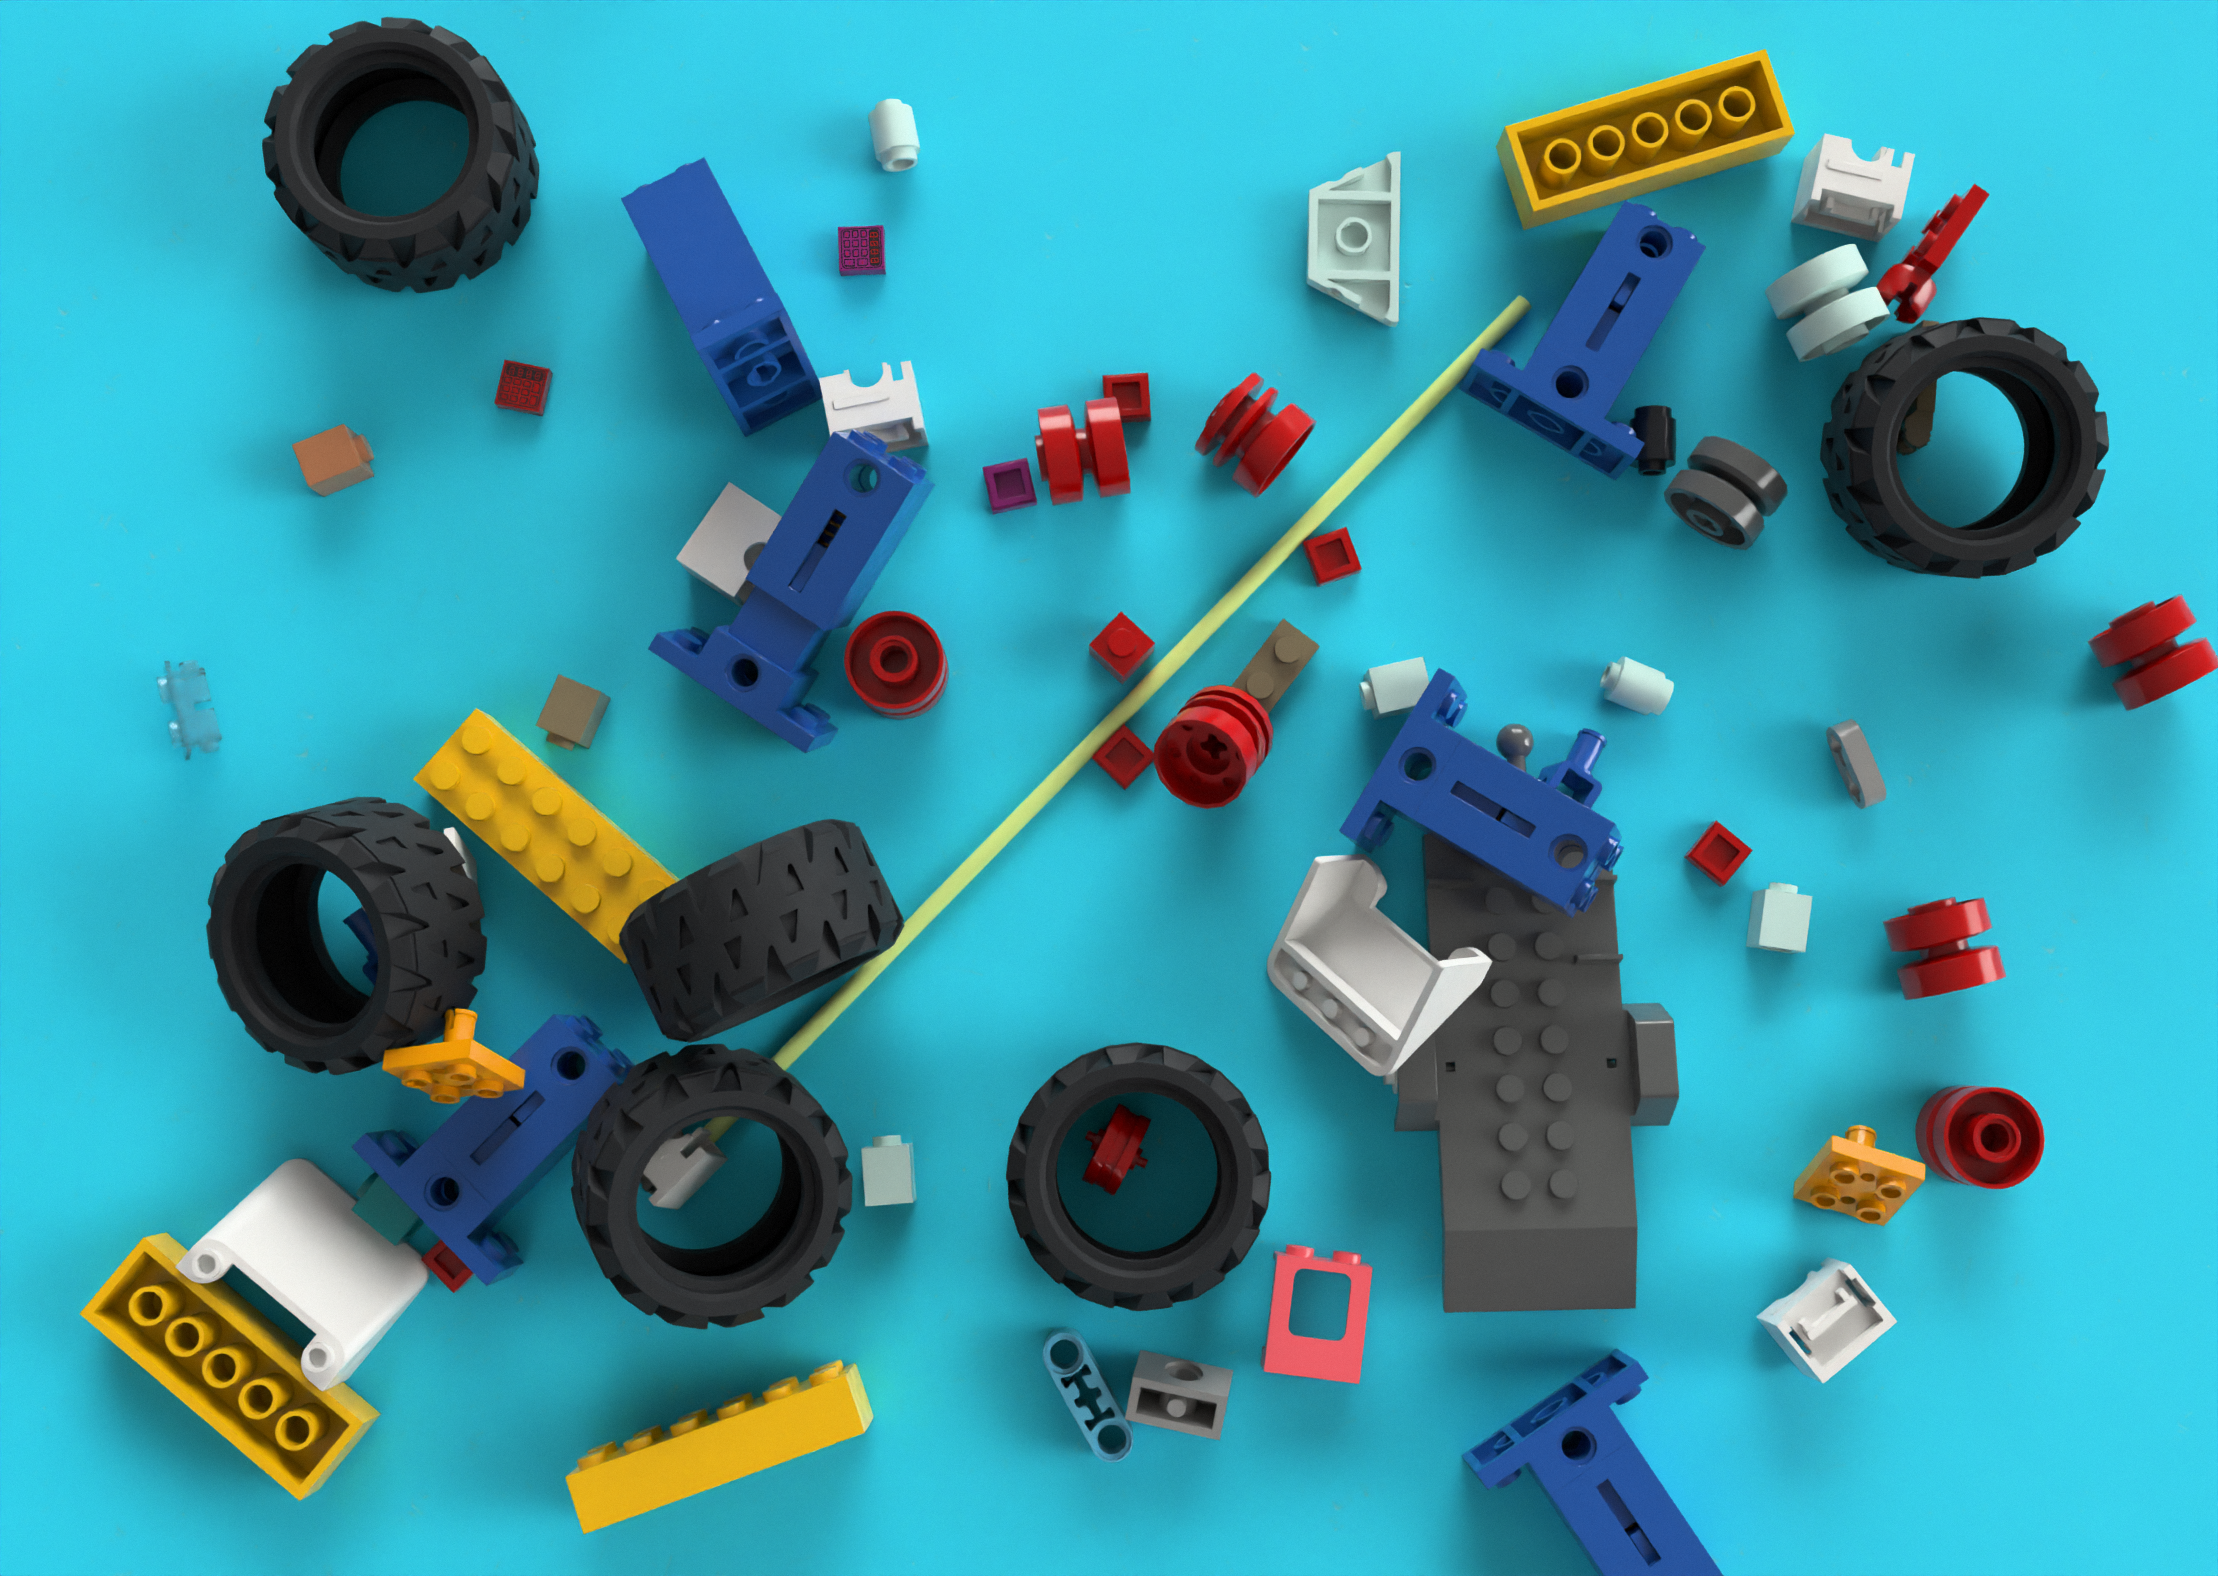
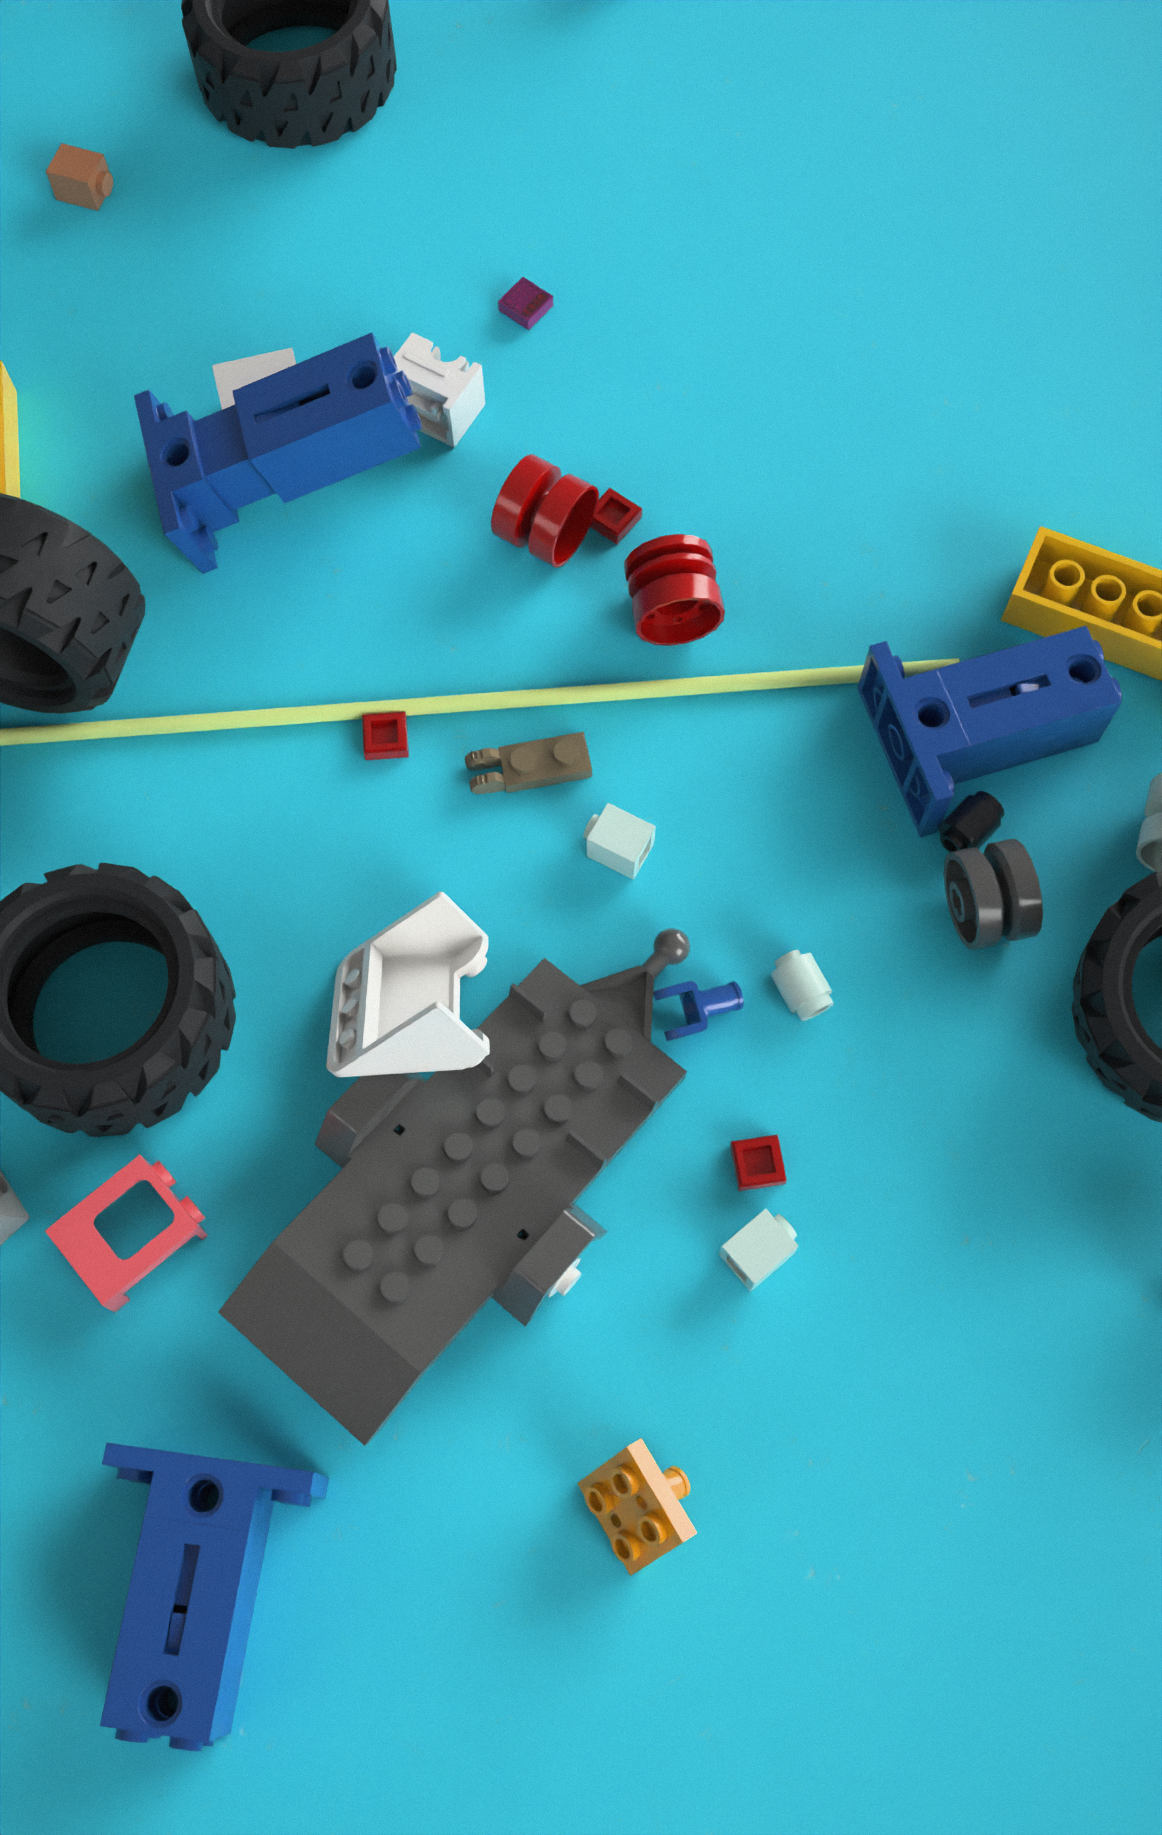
camera: 45 degrees right, 15 degrees down
(523, 388) = (235, 225): tile -> none
(572, 713) = (61, 421): dark tan brick -> none
(723, 296) = (398, 242): blue brick -> none
(894, 135) = (612, 251): light aqua brick -> none
(896, 665) = (288, 546): red wheel -> none
(1009, 486) = (476, 508): magenta tile -> none
(1116, 1149) = (106, 978): red wheel -> none
(1121, 647) = (450, 658): red brick -> none
(1213, 746) = (443, 759): red wheel -> none
(1331, 557) = (658, 722): red tile -> none
(1357, 239) = (870, 534): light aqua wing -> none
(1483, 807) = (593, 948): blue brick -> none
(1831, 1315) = (504, 1599): white piece -> none
(1856, 764) = (928, 1184): light grey beam -> none
(1941, 936) = (879, 1366): red wheel -> none
(1980, 1136) = (772, 1564): red wheel -> none

